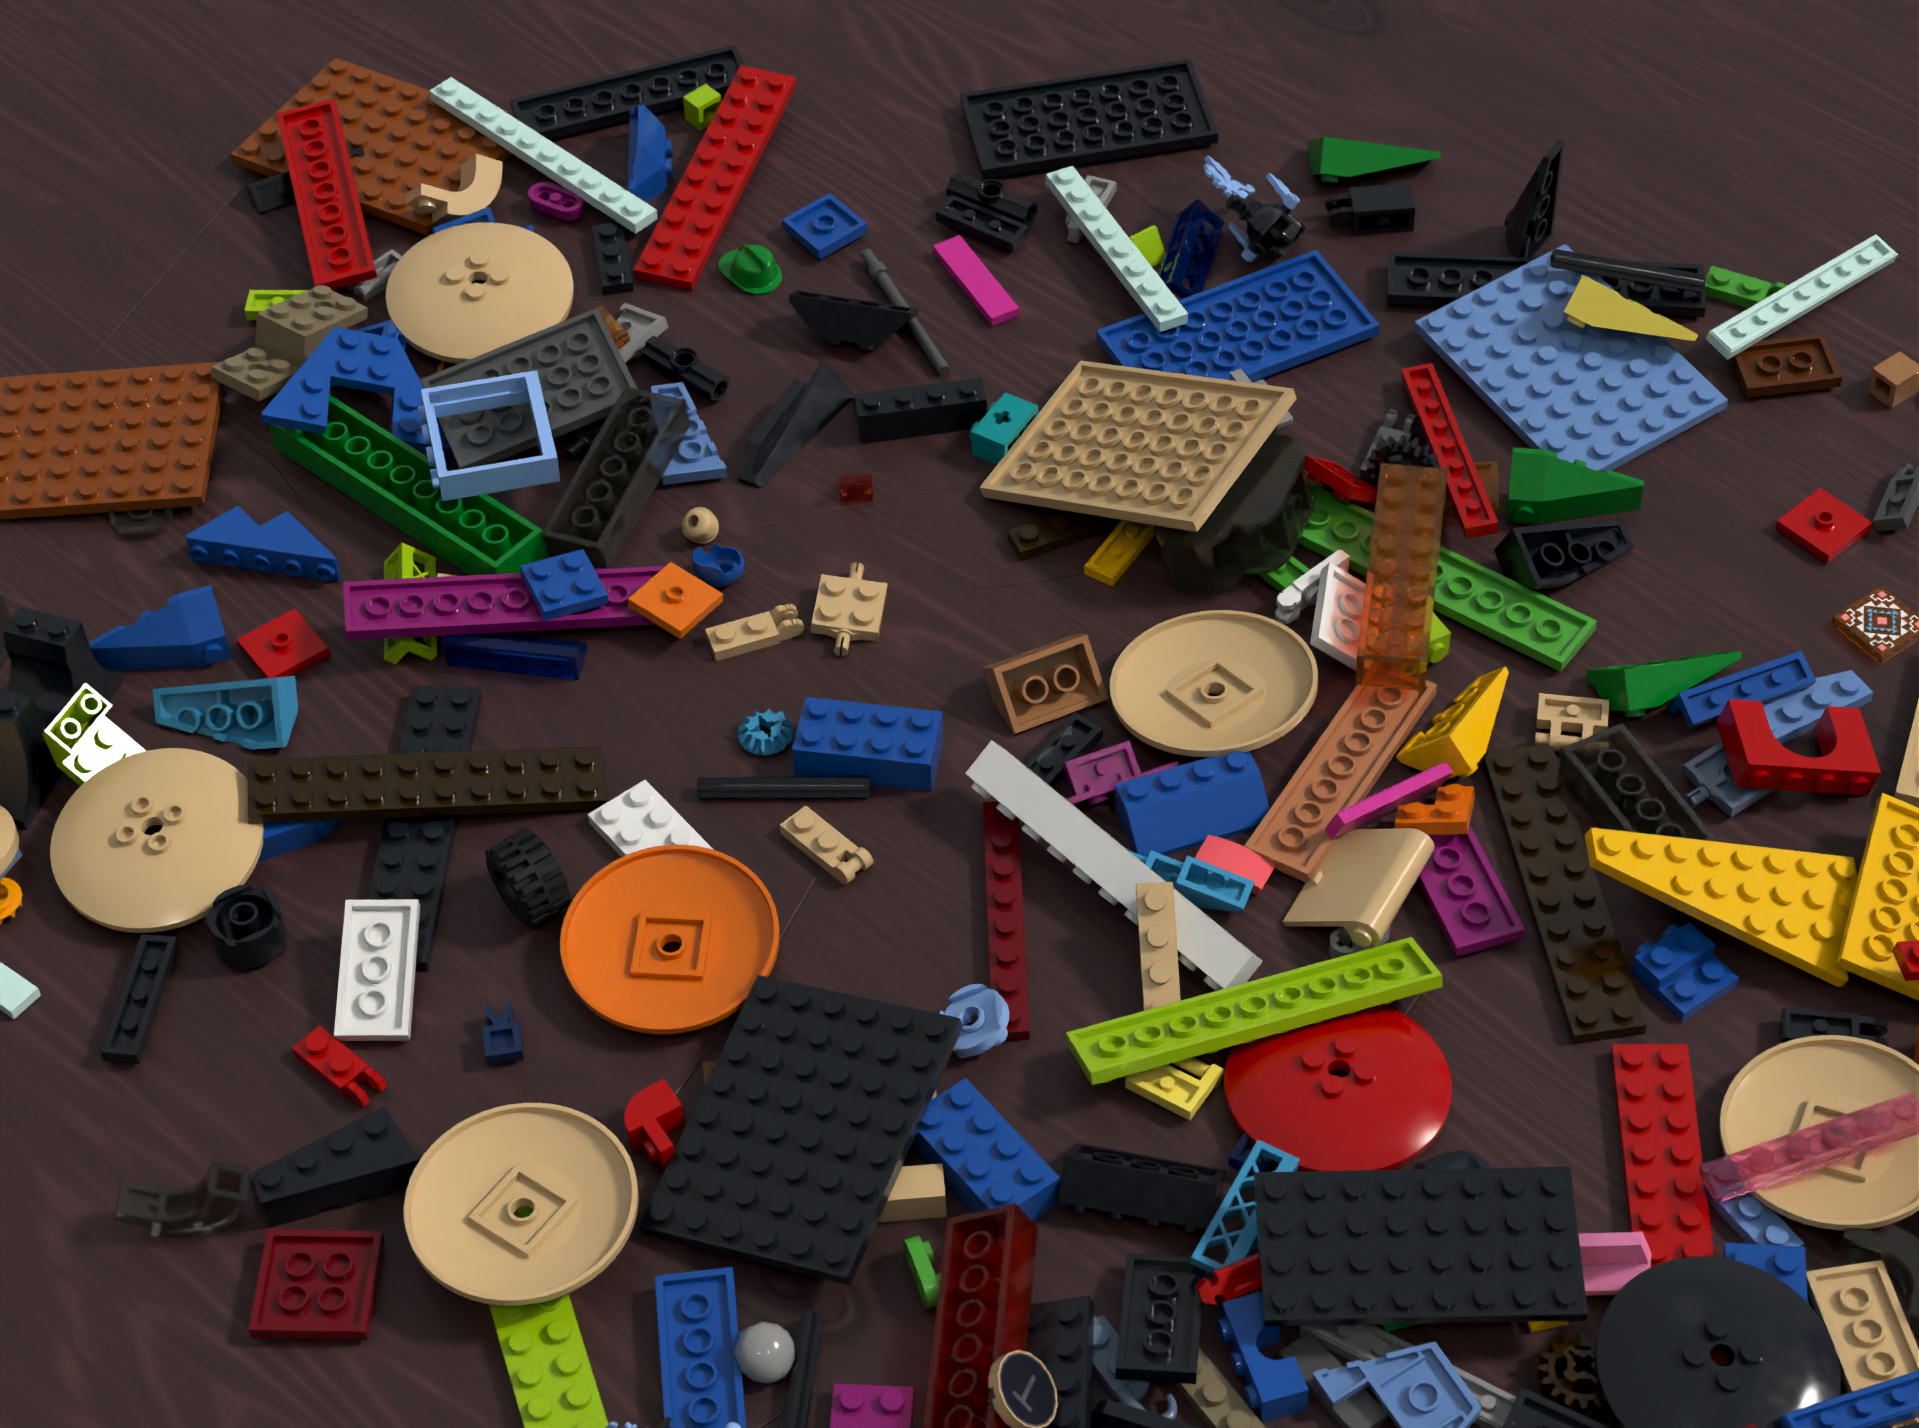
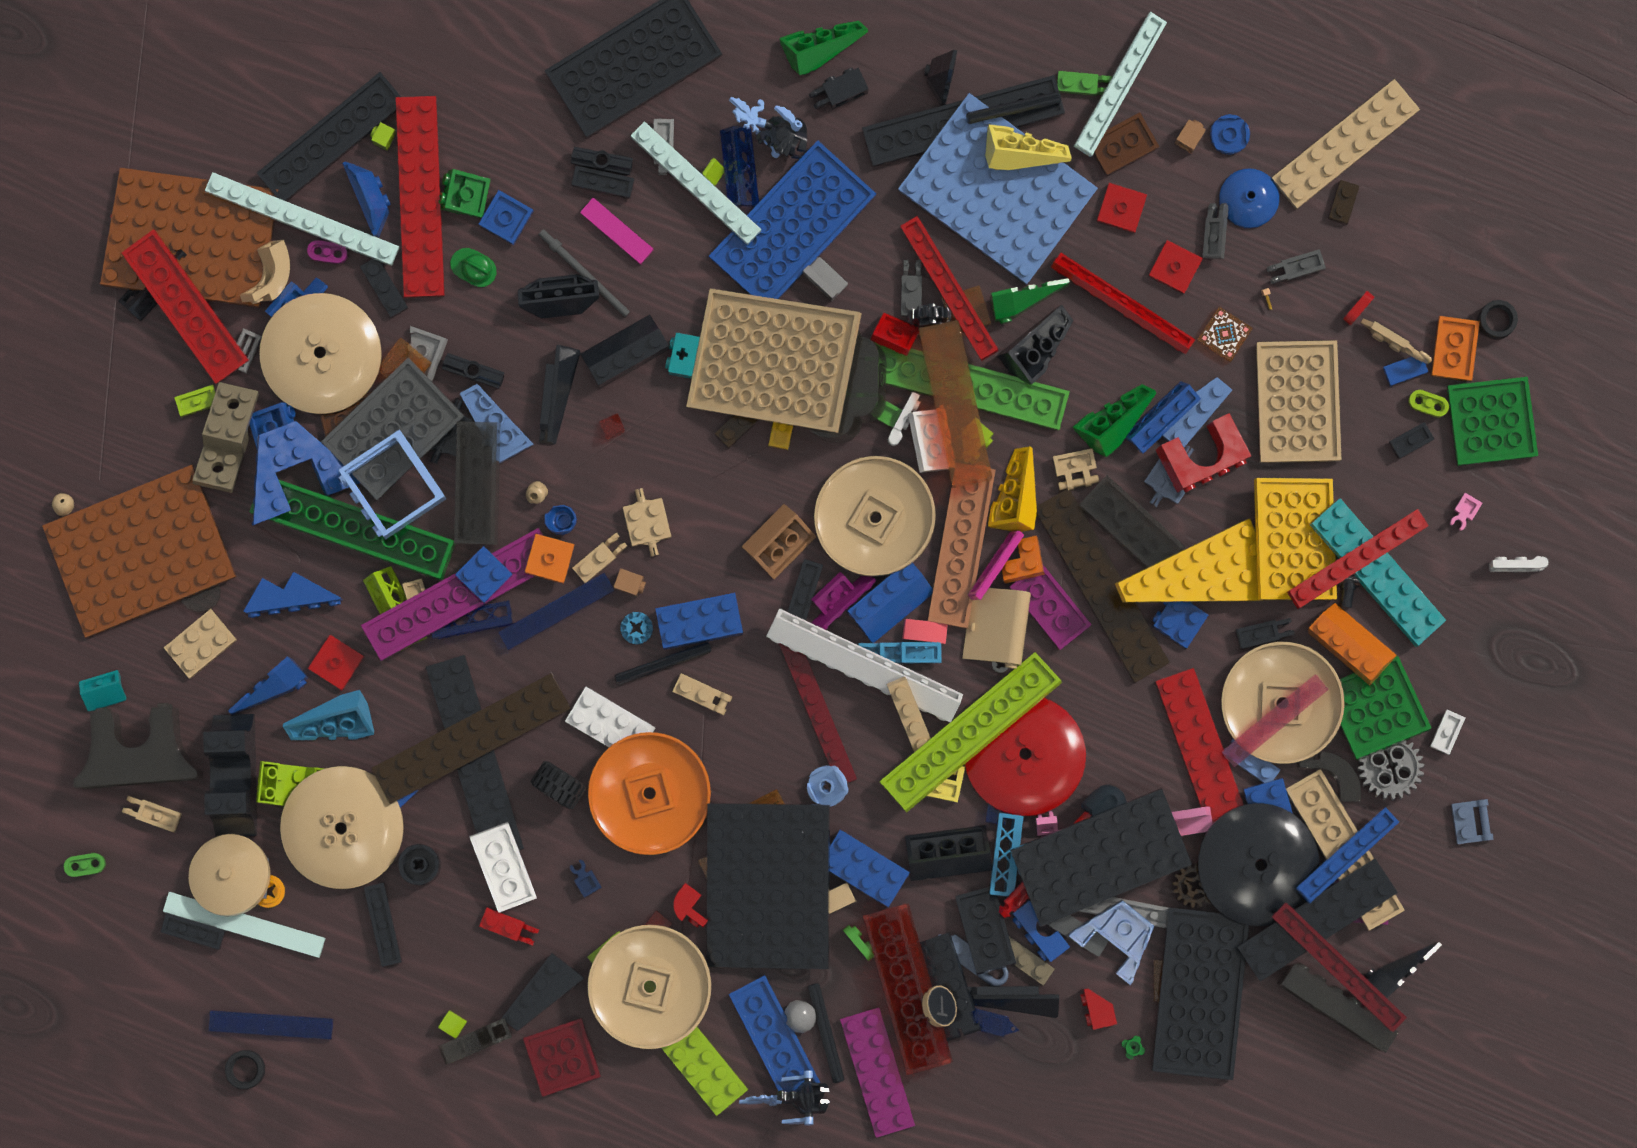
camera: 25 degrees left, 35 degrees up
(19, 361) = (62, 504): none -> tan piece
(101, 571) = (200, 644): none -> tan plate
(163, 1170) = (452, 1024): none -> lime slope
(651, 674) = (556, 611): none -> clear blue plate
(779, 184) = (464, 193): none -> green plate
(782, 668) = (629, 583): none -> medium nougat brick
(1731, 550) = (1121, 302): none -> red plate
(1758, 437) = (1122, 207): none -> red plate

